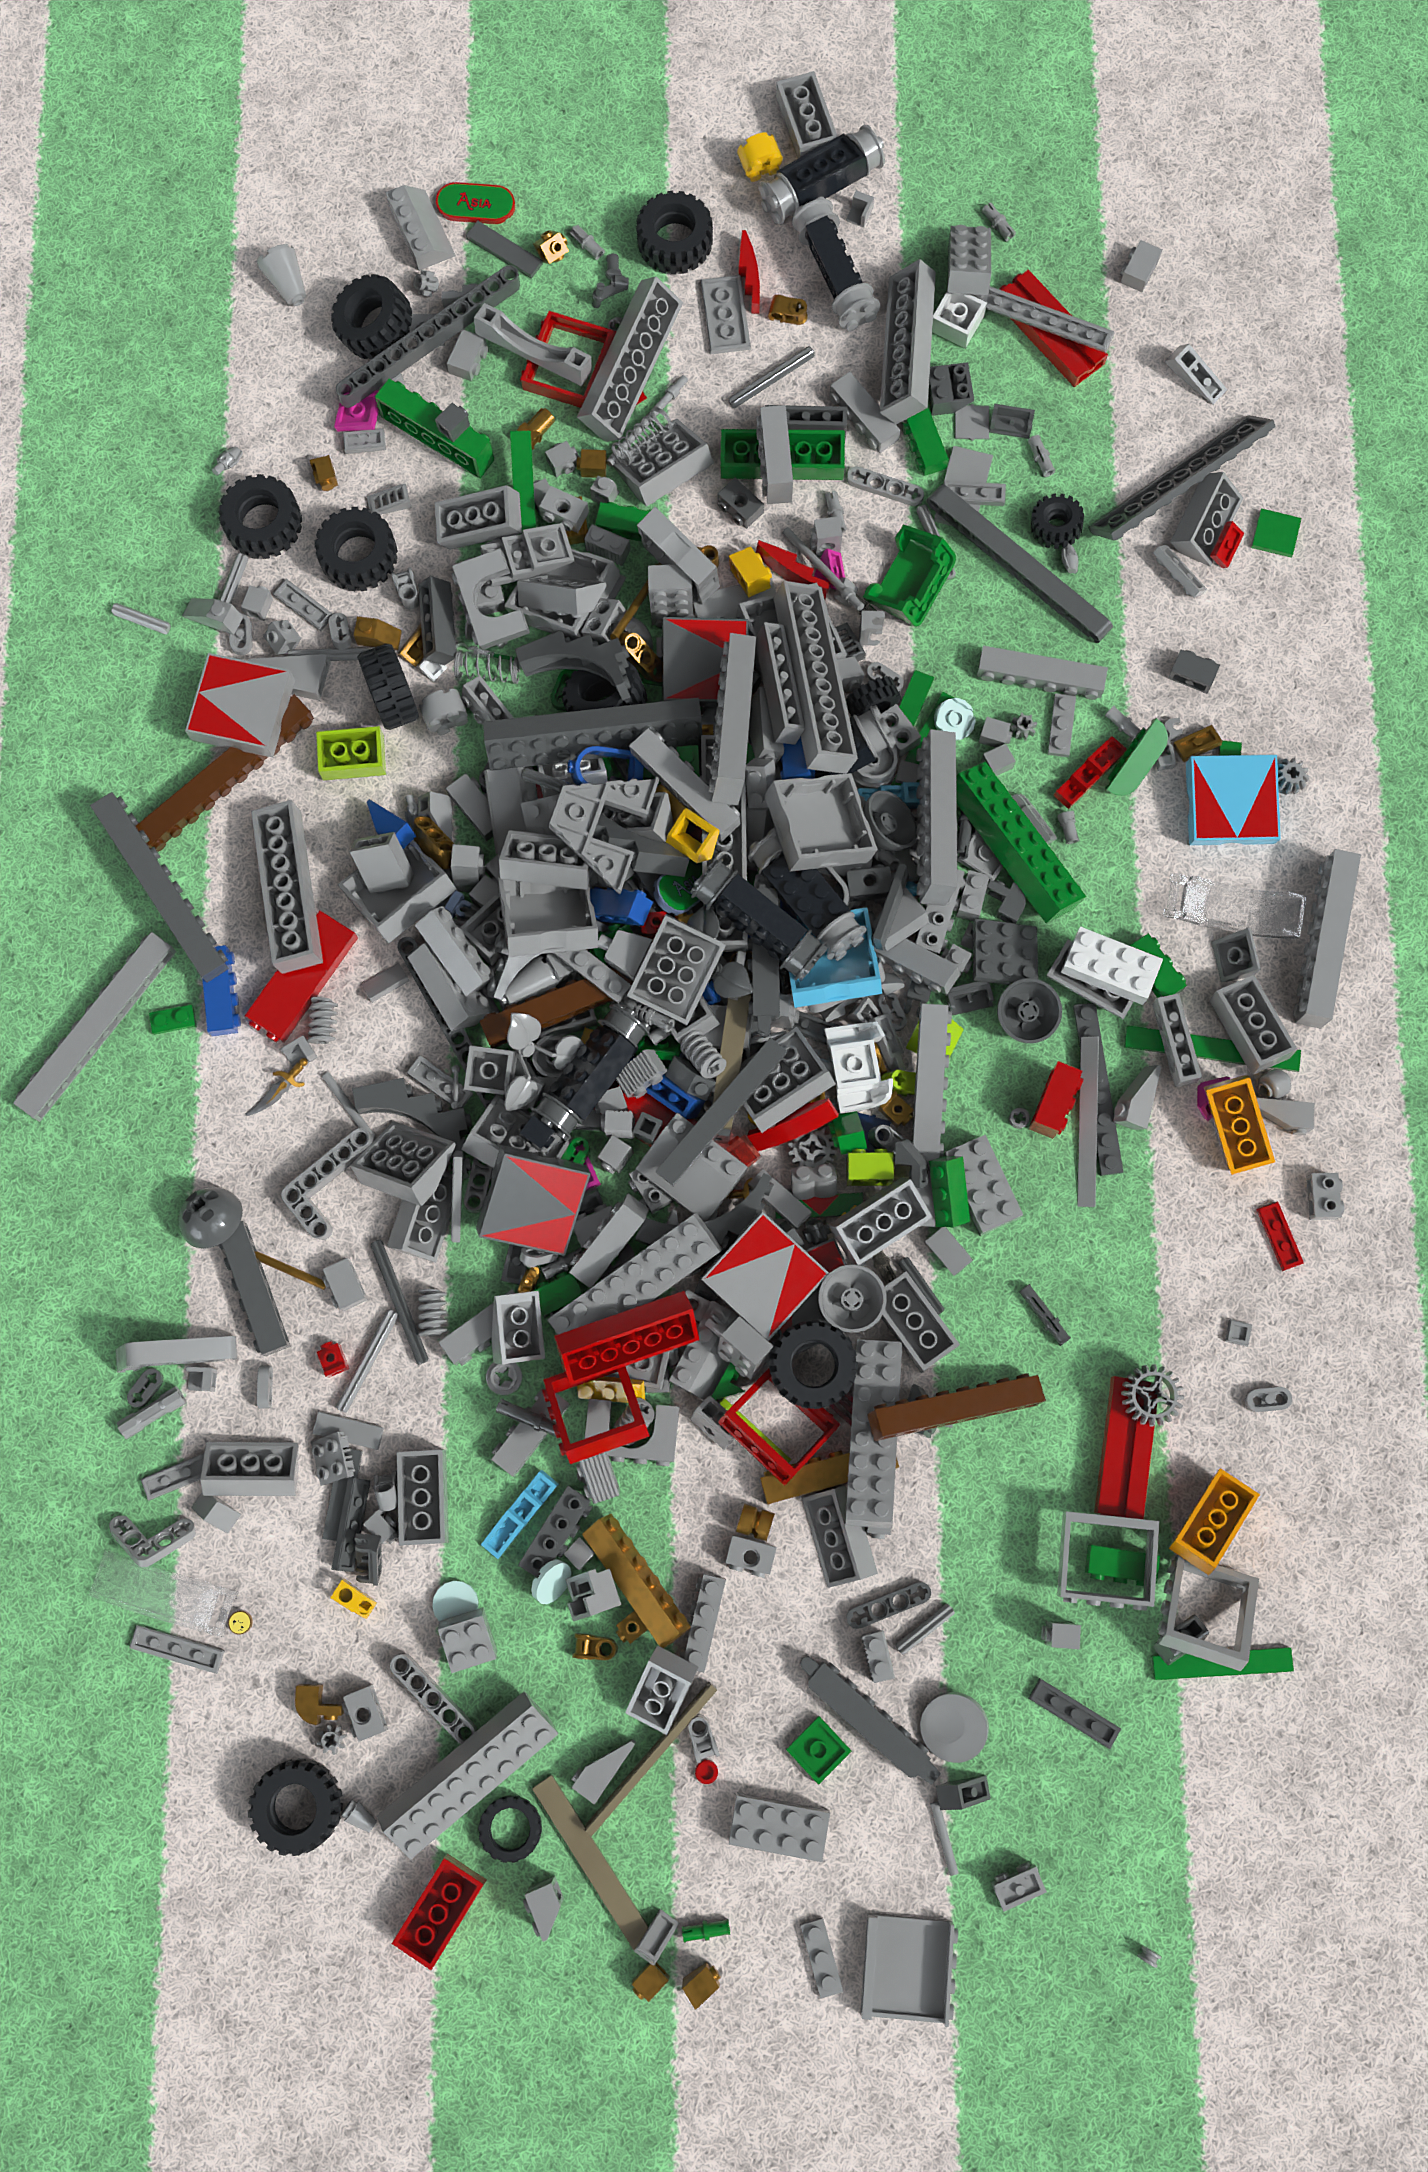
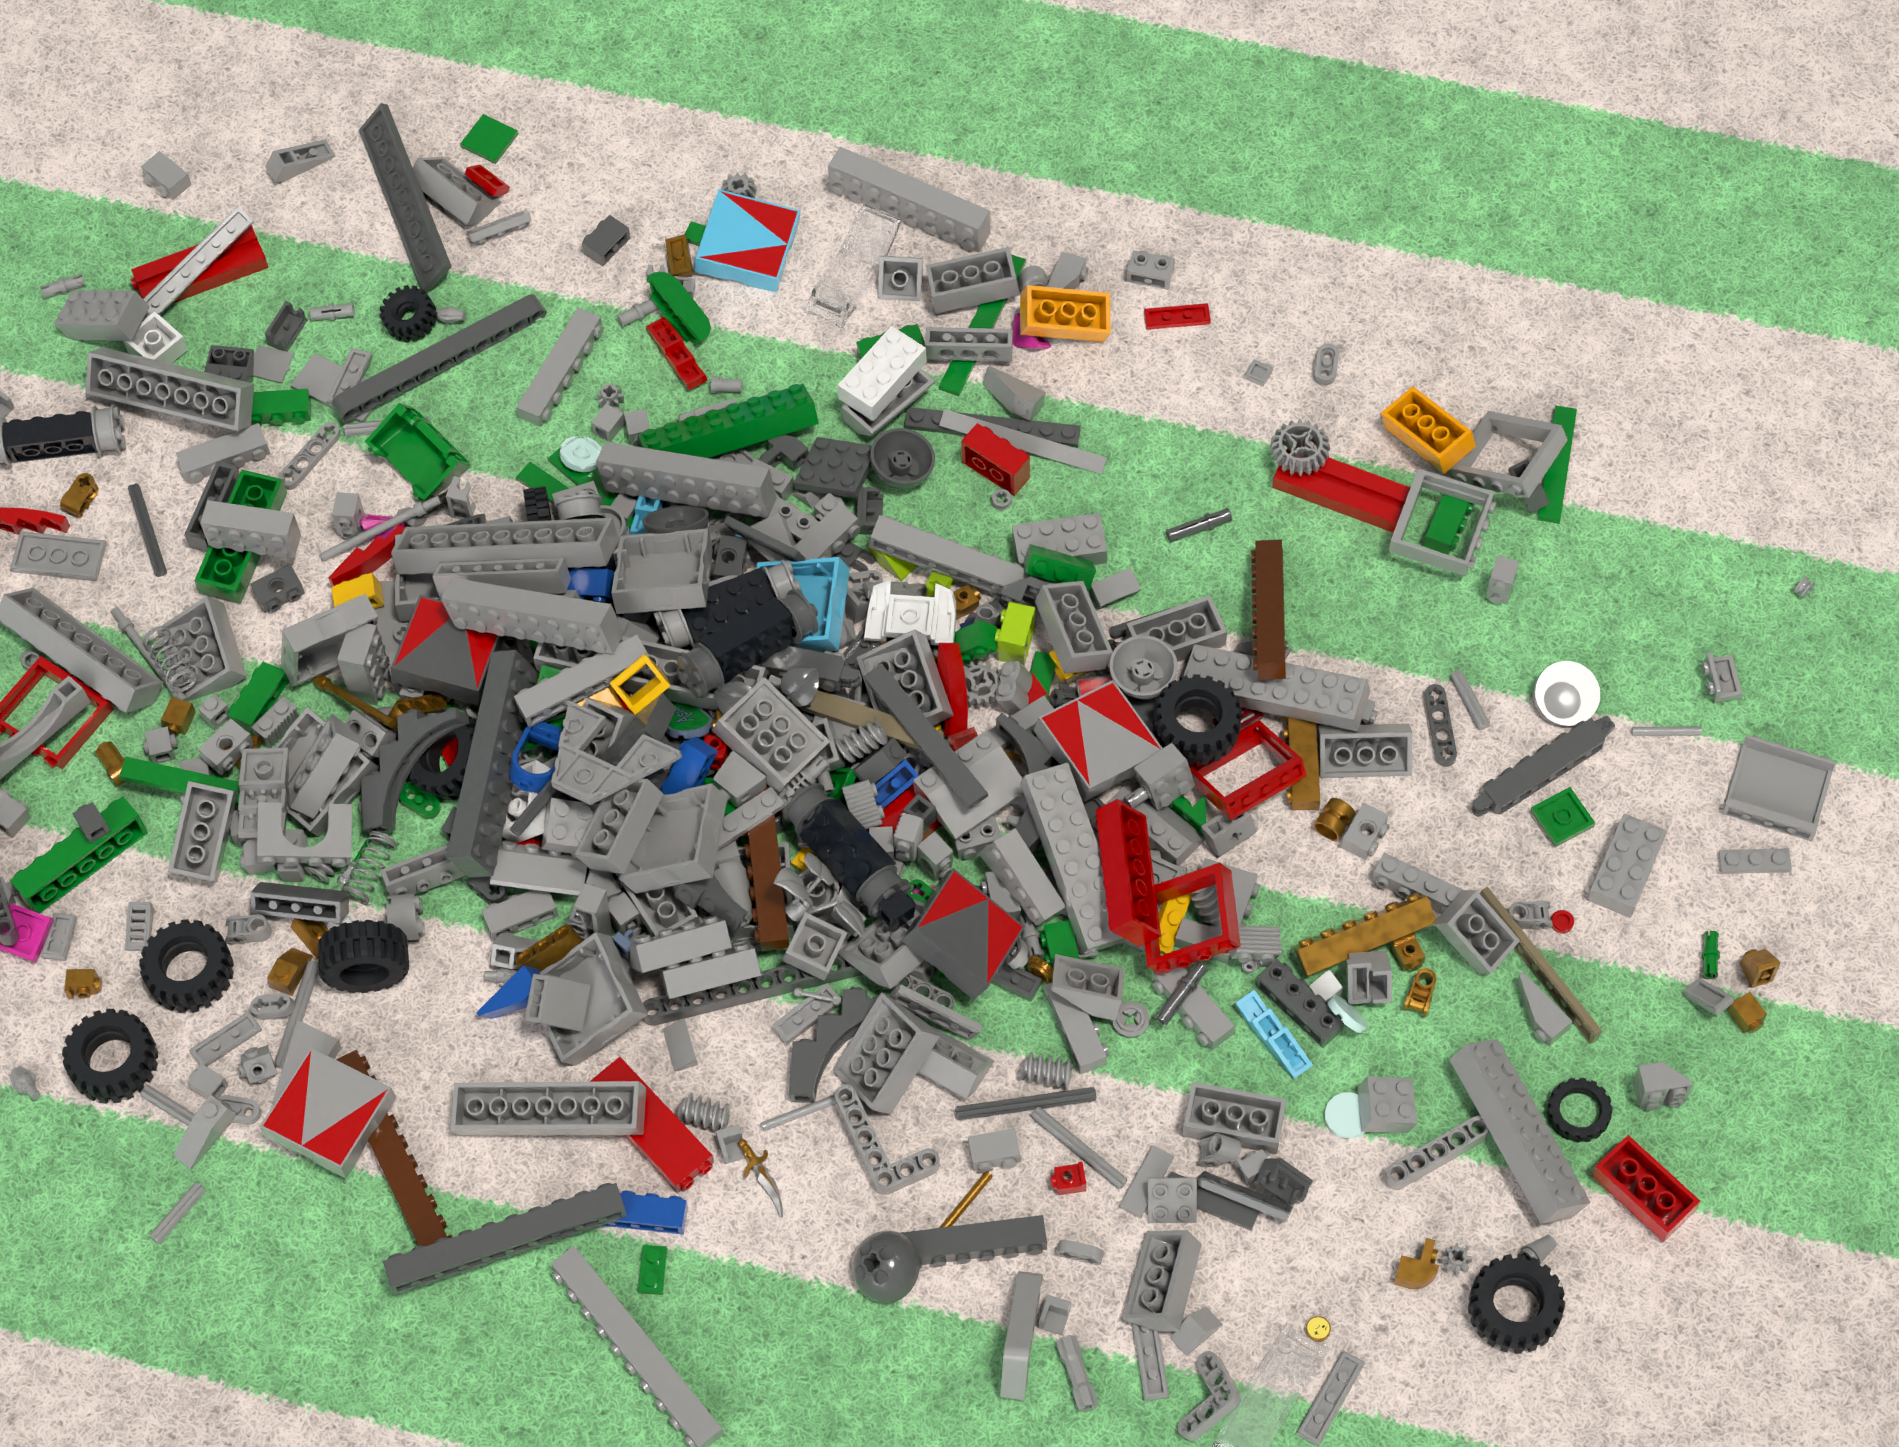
camera: 75 degrees left, 15 degrees down
(141, 1384) = (1052, 1372): dark grey beam -> none
(351, 753) = (418, 1020): lime brick -> none
(353, 1599) = (1319, 1210): yellow leg -> none
(375, 1723) = (1448, 1213): light grey brick -> none
(591, 1860) = (1625, 1043): dark tan tile -> none
(835, 508) = (317, 506): light grey pin -> none
(877, 1656) = (1486, 743): light grey brick -> none
(884, 671) = (512, 504): light grey beam -> none
(963, 1793) = (1628, 703): dark grey slope -> none
(1061, 725) = (619, 366): light grey plate -> none
(1074, 1713) = (1575, 595): dark grey tile -> none

